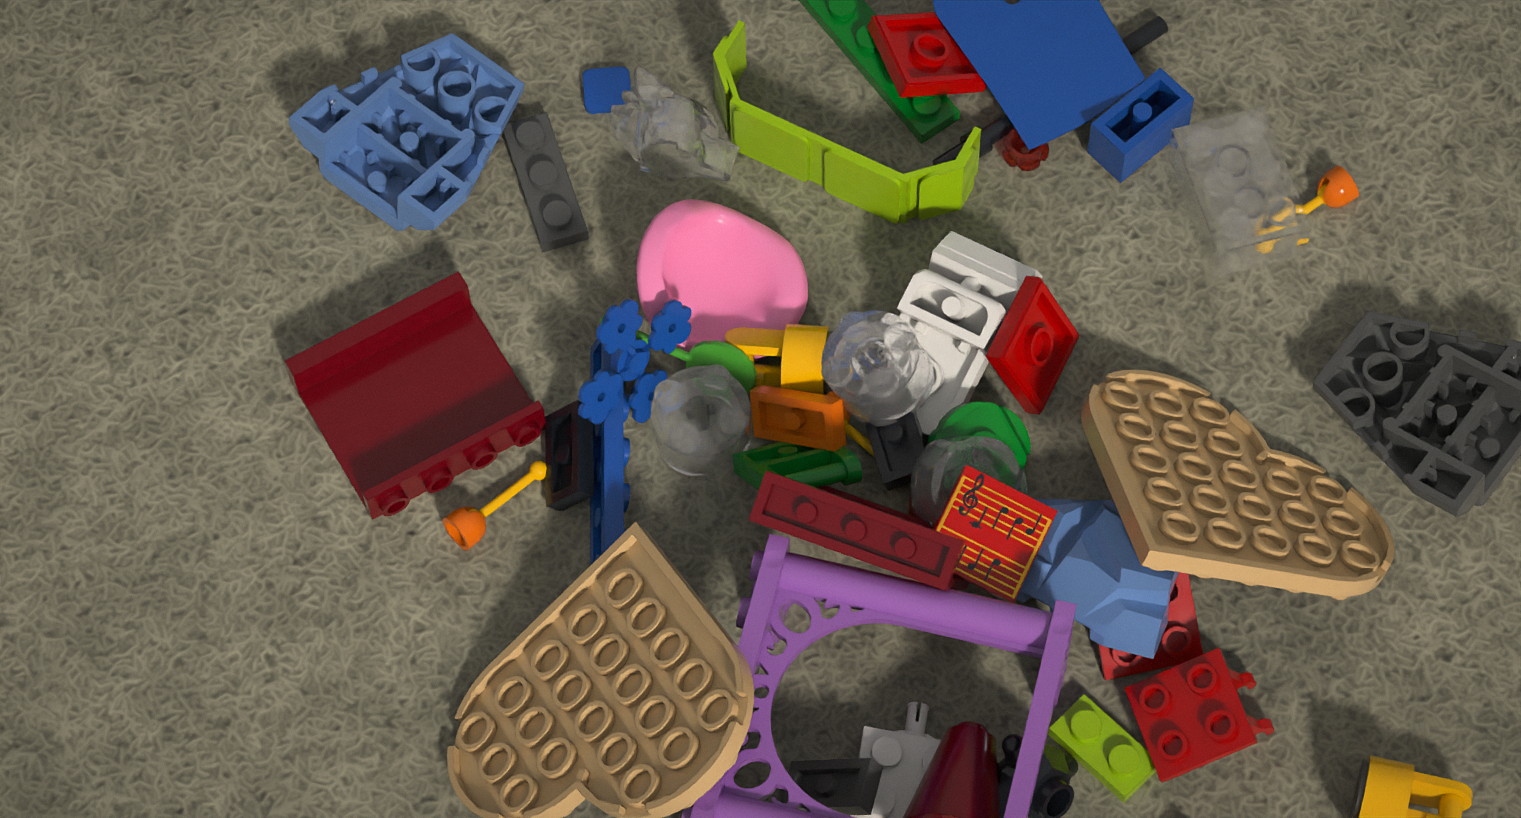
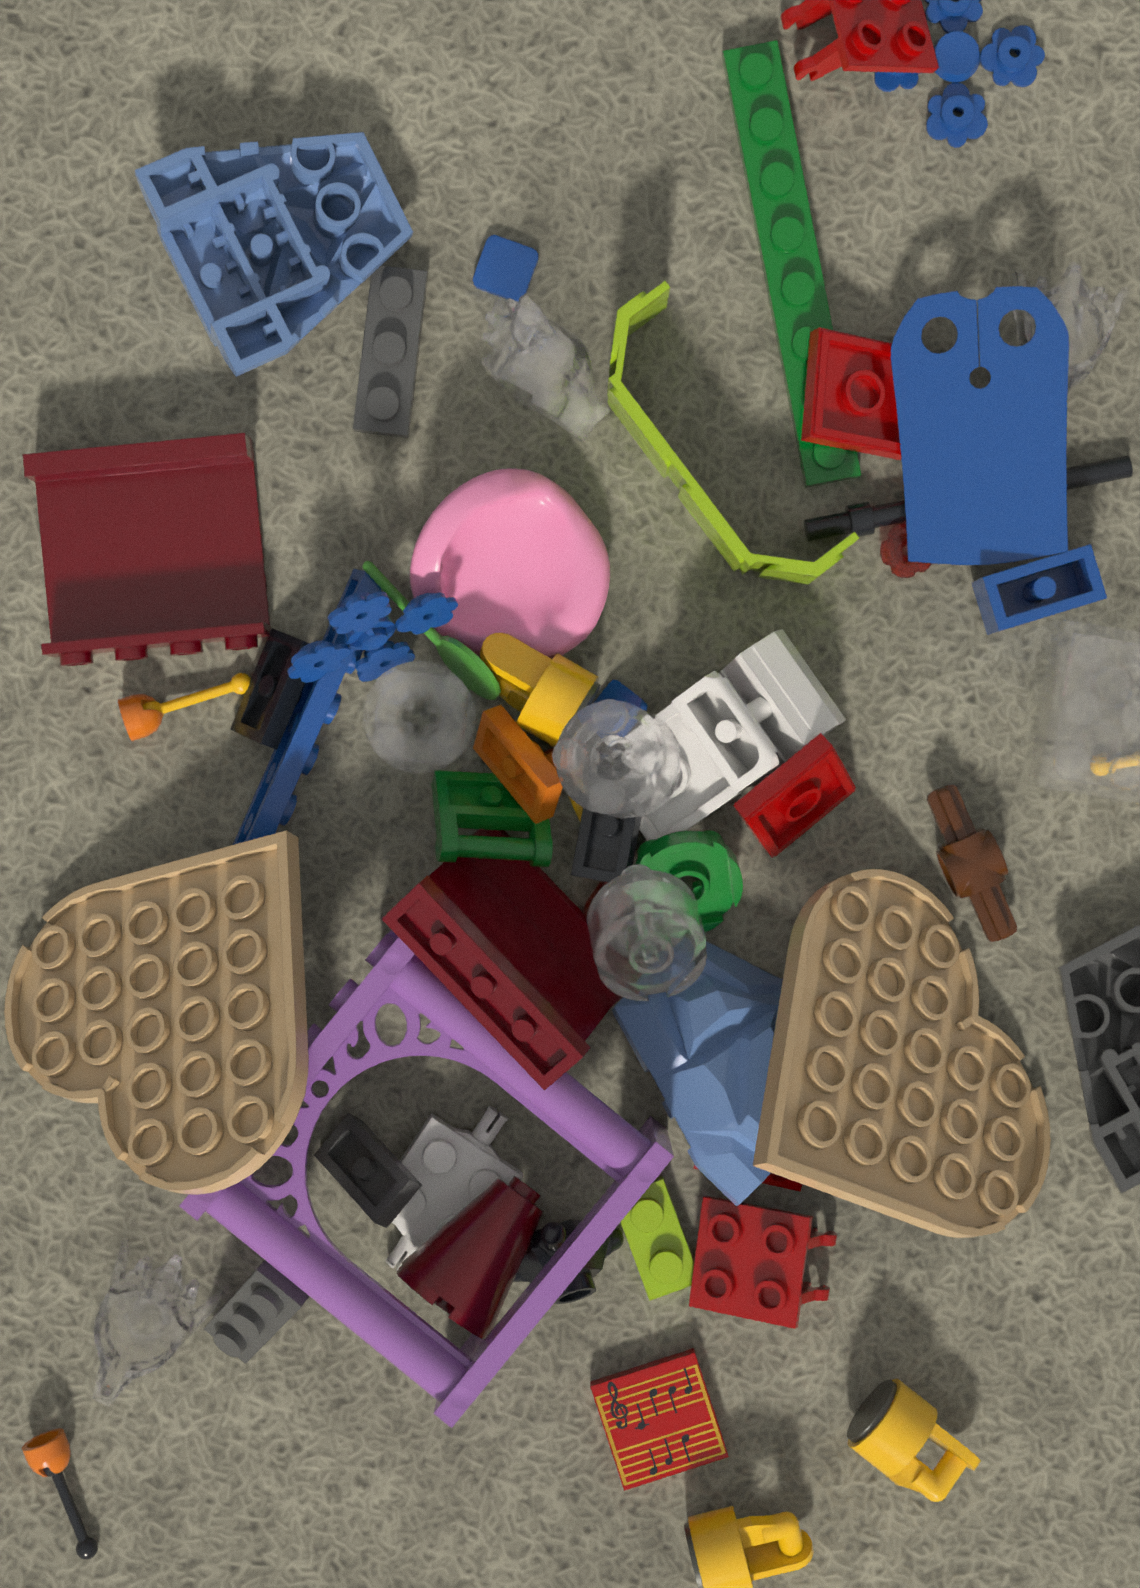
camera: 25 degrees right, 25 degrees up
(999, 532) = (635, 1008): red tile -> none
(1201, 344) = (972, 863): none -> reddish brown axle

